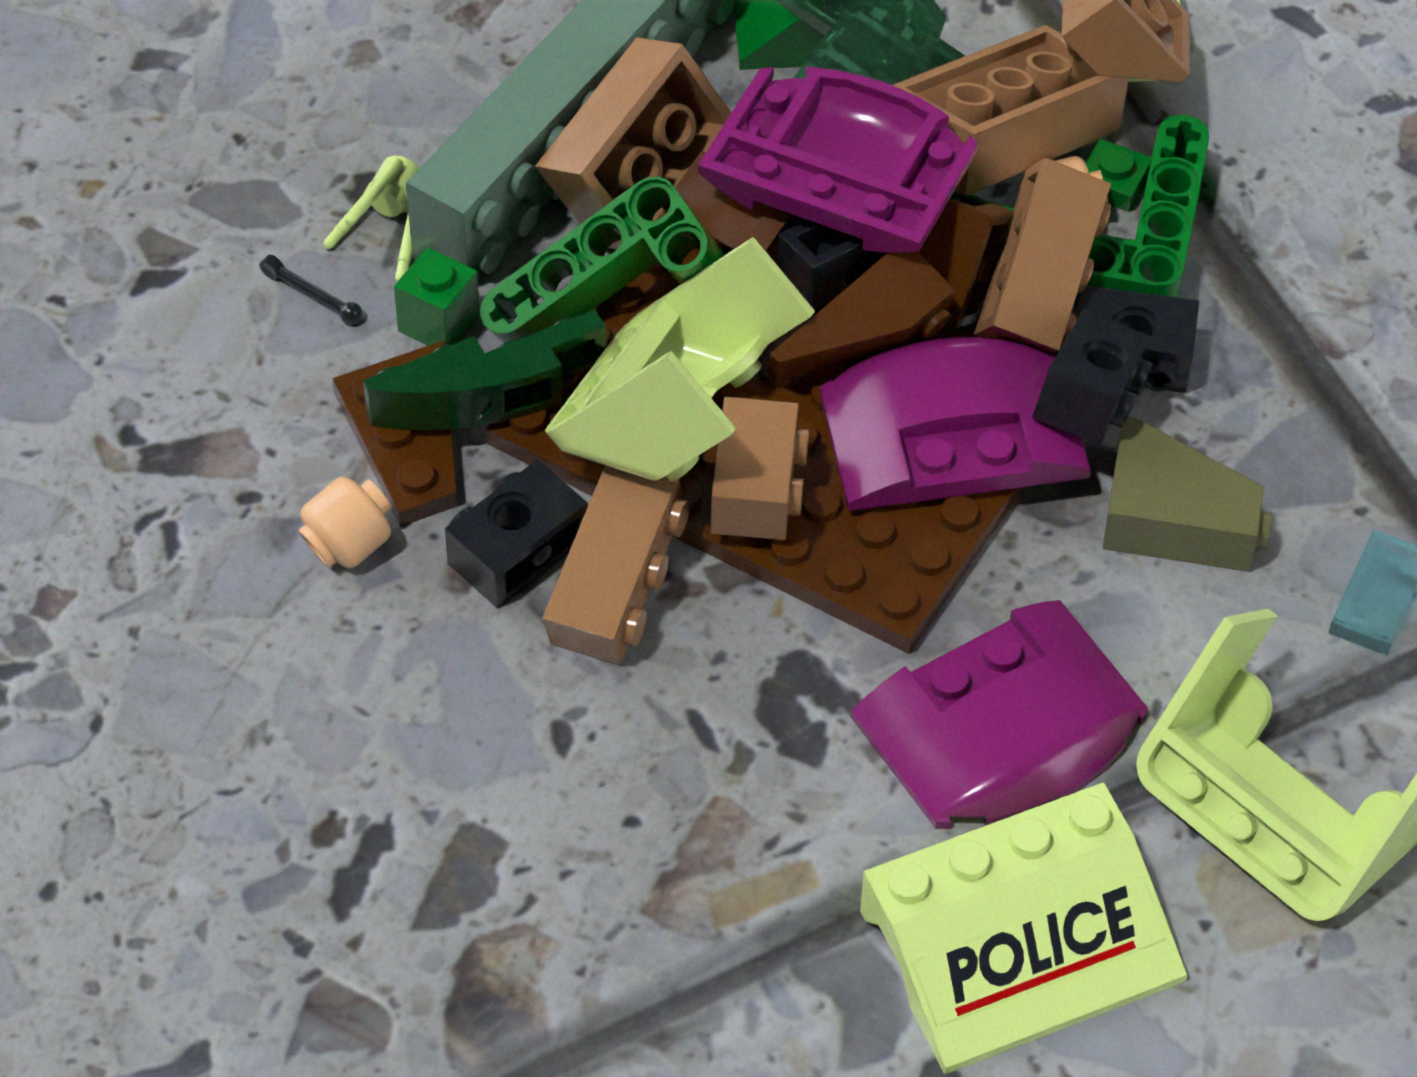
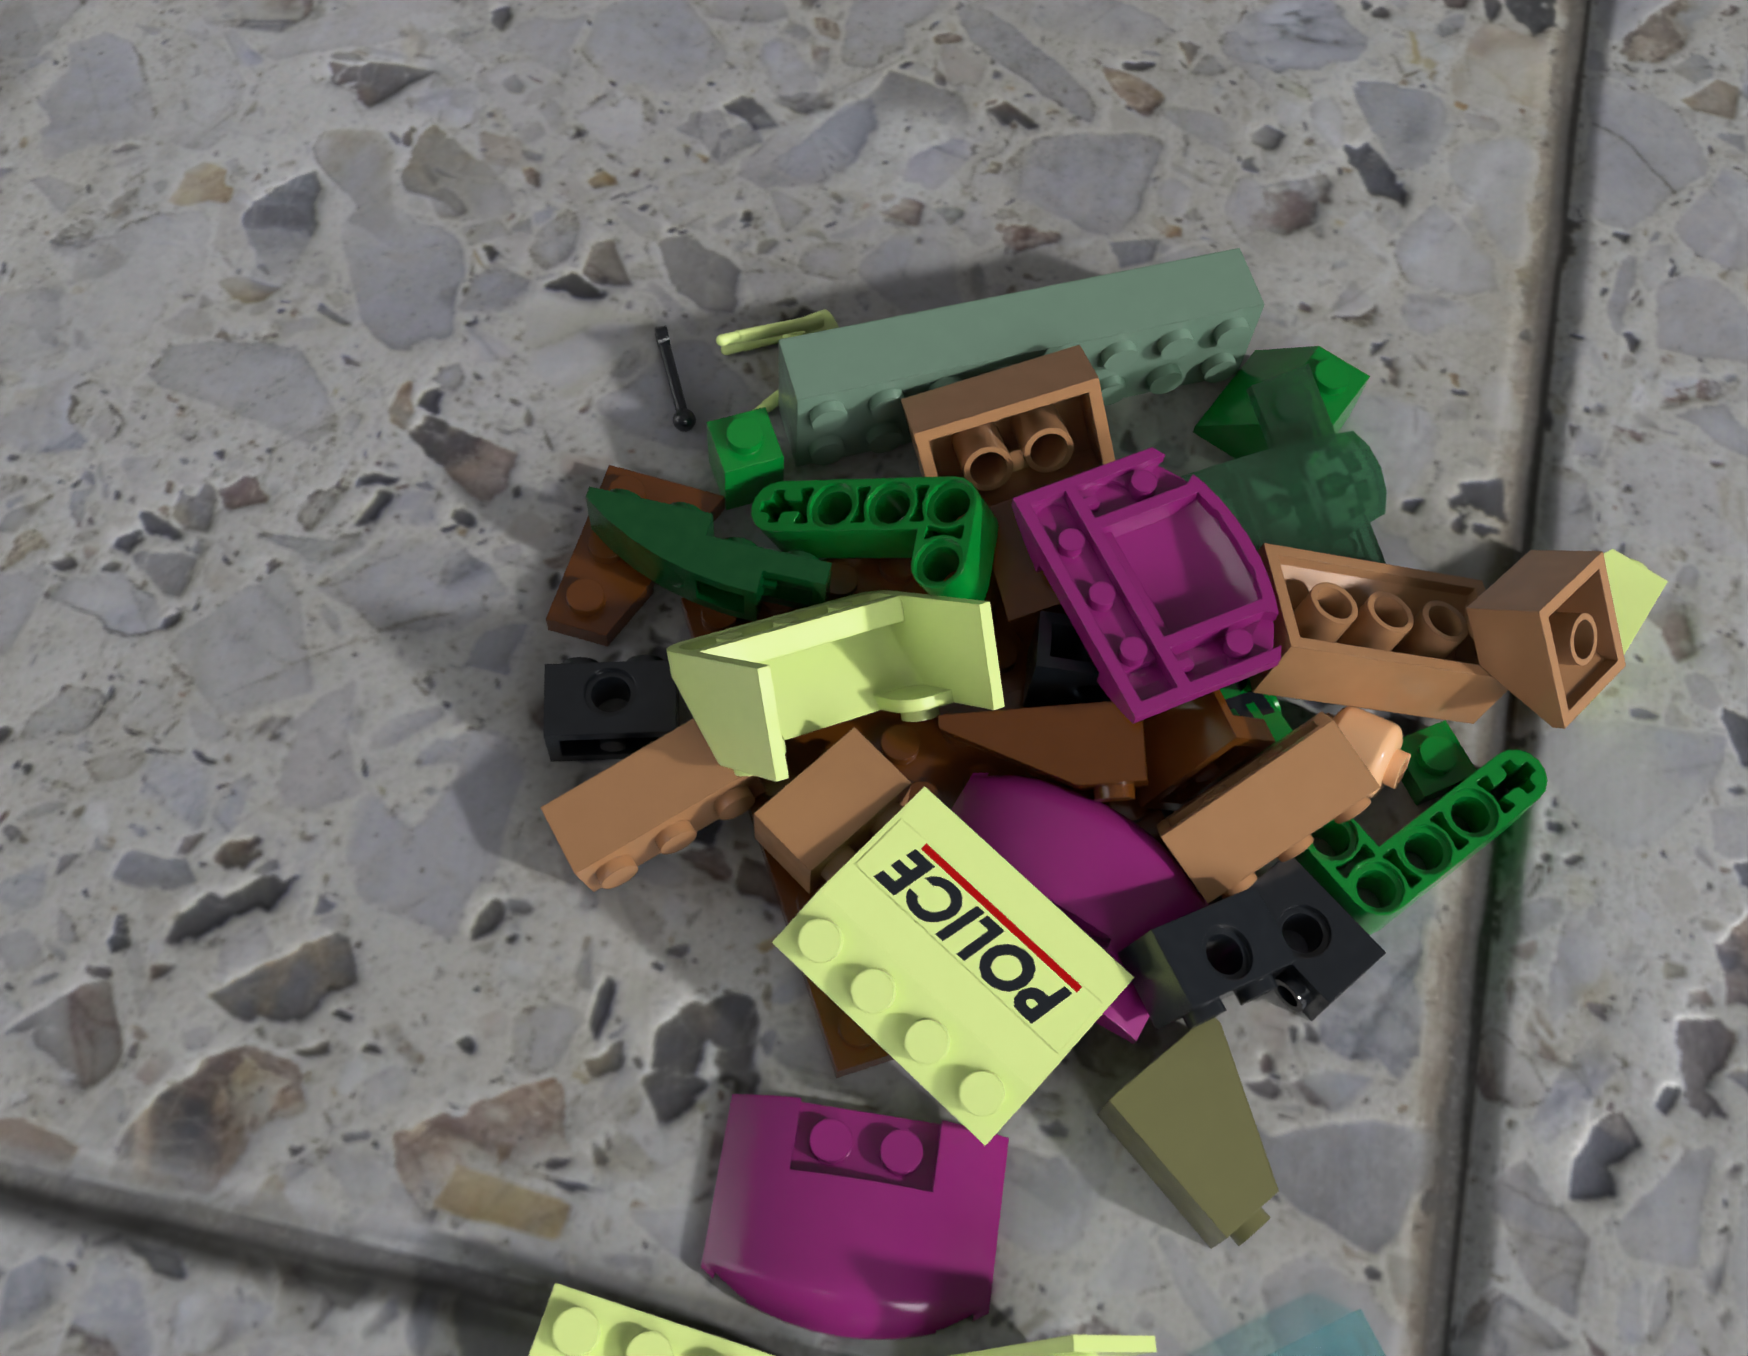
camera: 35 degrees right, 10 degrees up
(345, 522) = (492, 596): light nougat head -> none
(934, 498) = (953, 963): none -> yellowish green piece

